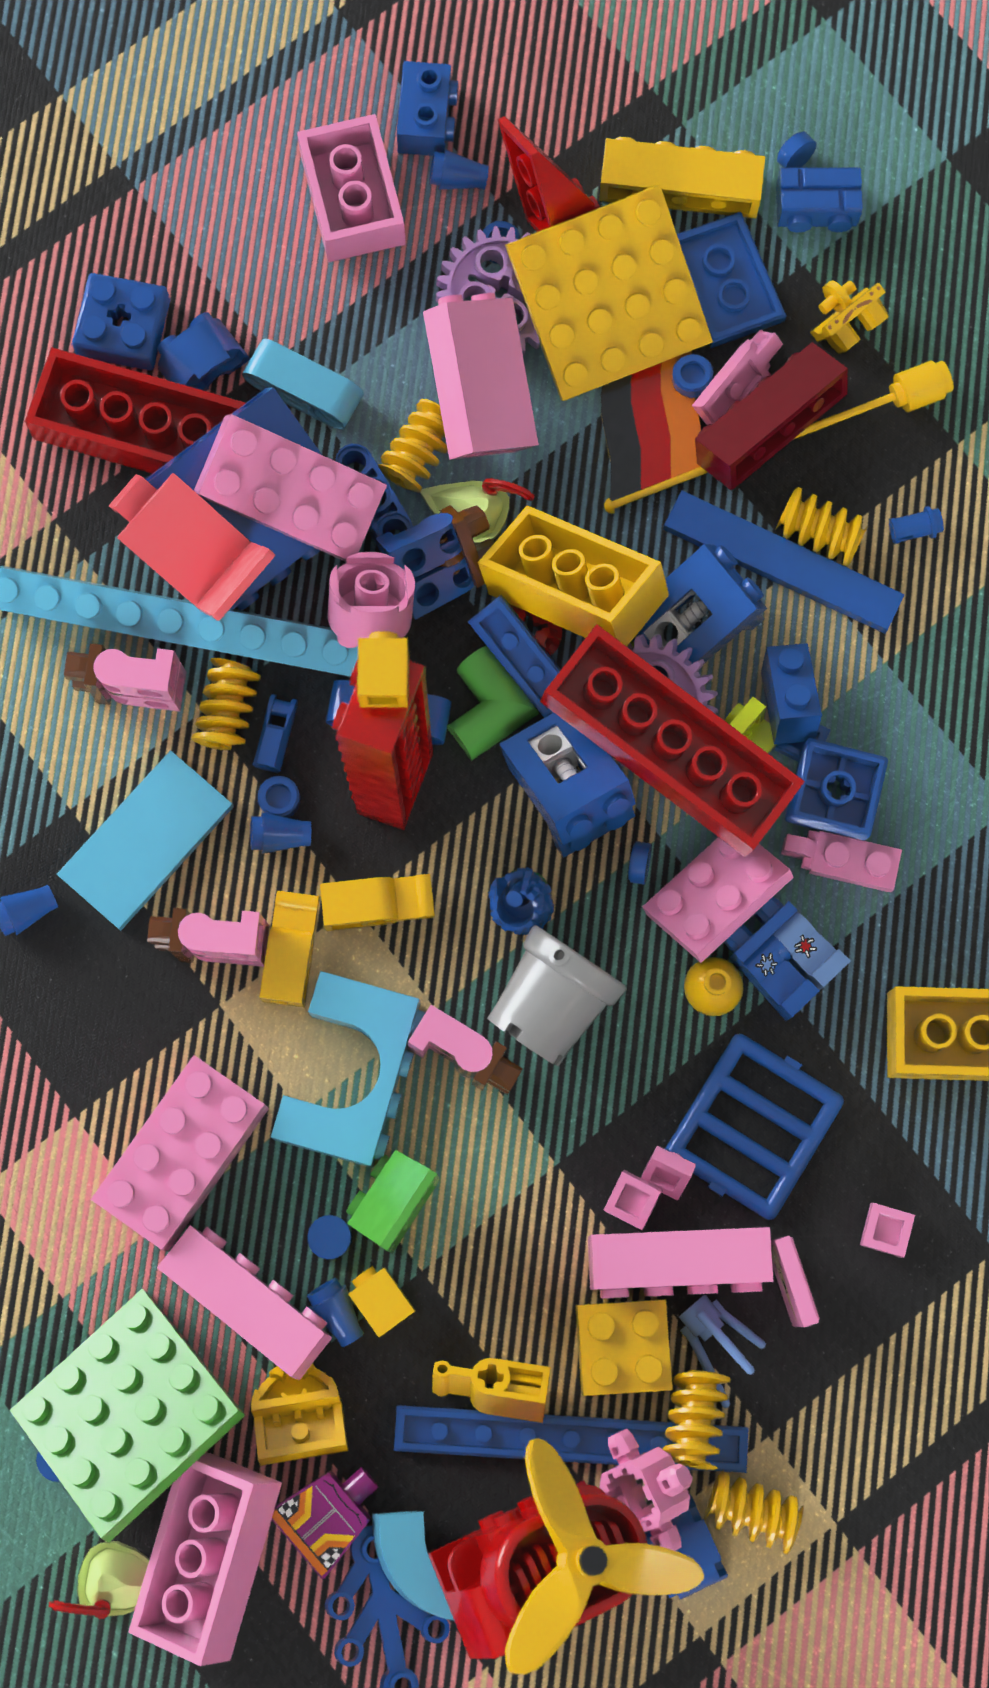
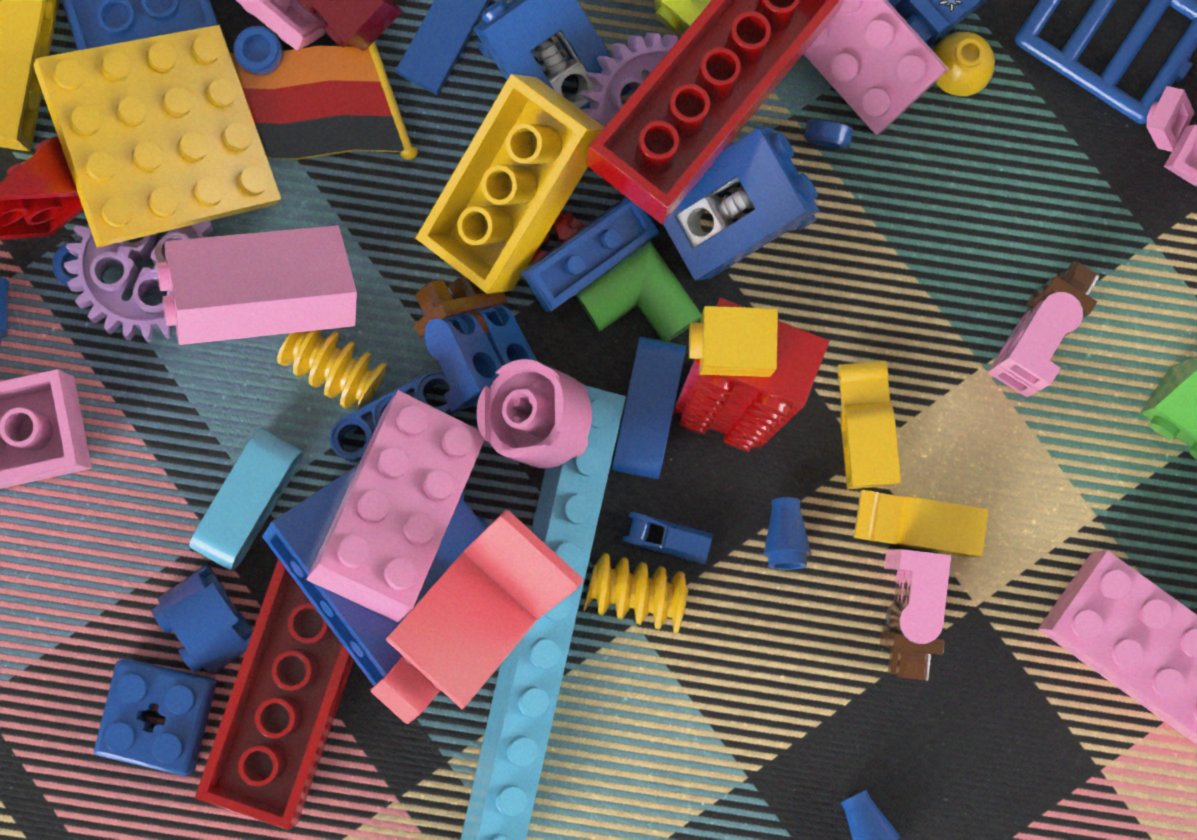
camera: 90 degrees left, 5 degrees up
(128, 679) = (607, 709): bright pink hips -> none
(145, 840) = (789, 689): medium azure tile -> none
(279, 796) = (742, 535): blue tile -> none
(358, 1130) = (1124, 453): medium azure arch -> none
(487, 495) = (397, 306): yellowish green piece -> none
(520, 901) = (875, 263): blue piece -> none
(553, 997) = (989, 228): light grey piece -> none

